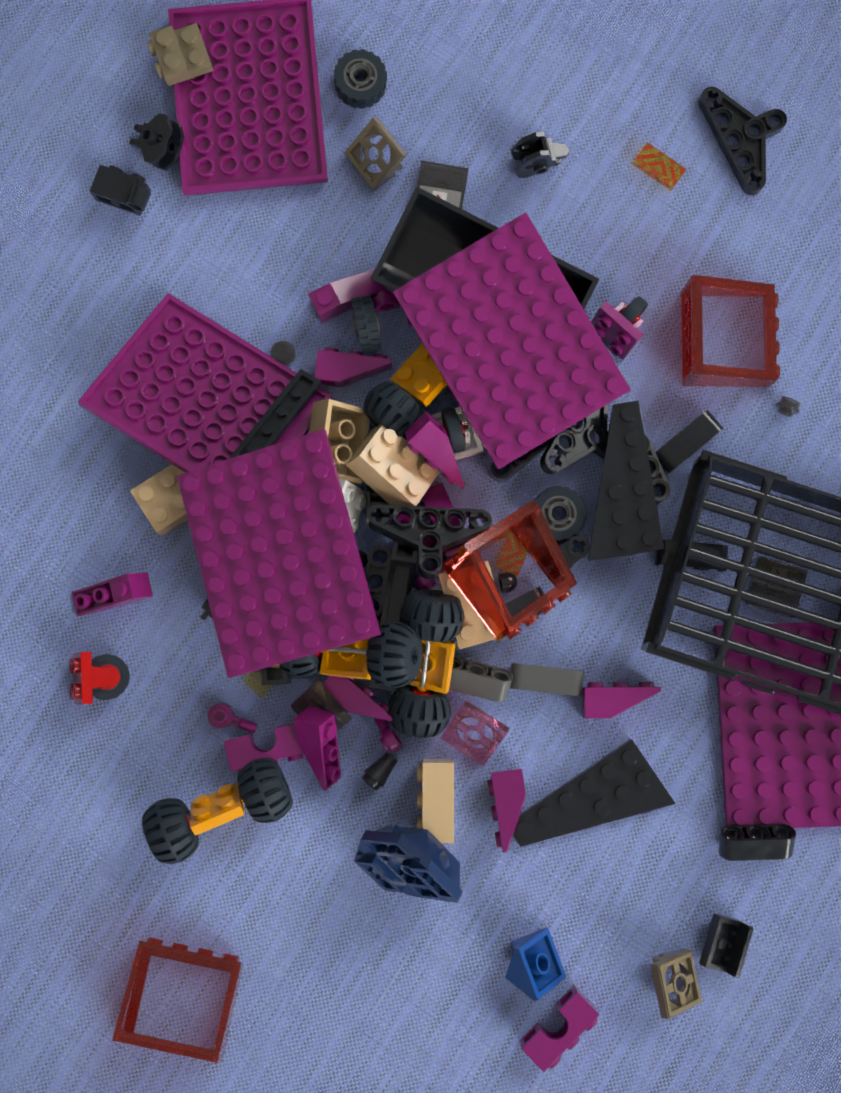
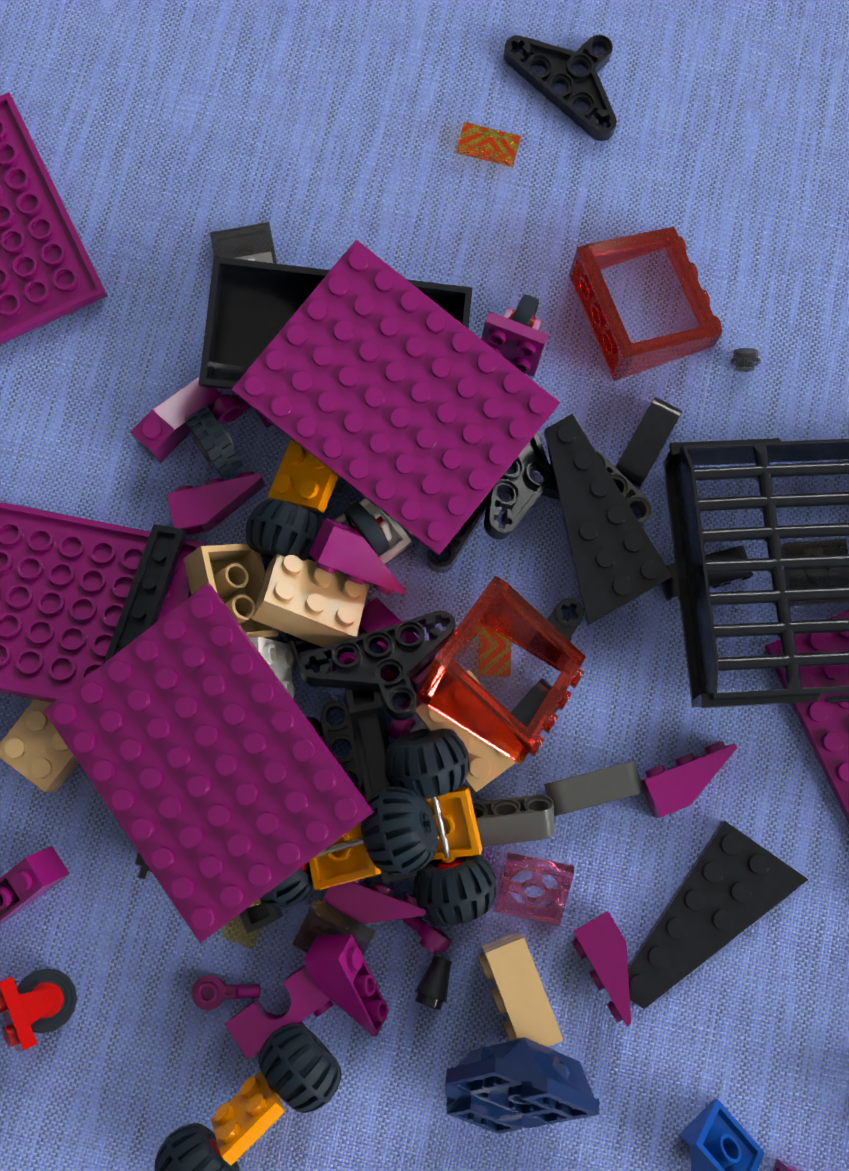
camera: 25 degrees left, 5 degrees down
(283, 352) = (126, 513): clear smoke plate -> none
(353, 153) = (126, 251): dark tan piece -> none
(360, 64) = (100, 148): black wheel -> none
(507, 582) = (500, 687): black hinge -> none
(537, 154) = (343, 177): black hinge -> none
(571, 504) = (542, 567): wheel -> none

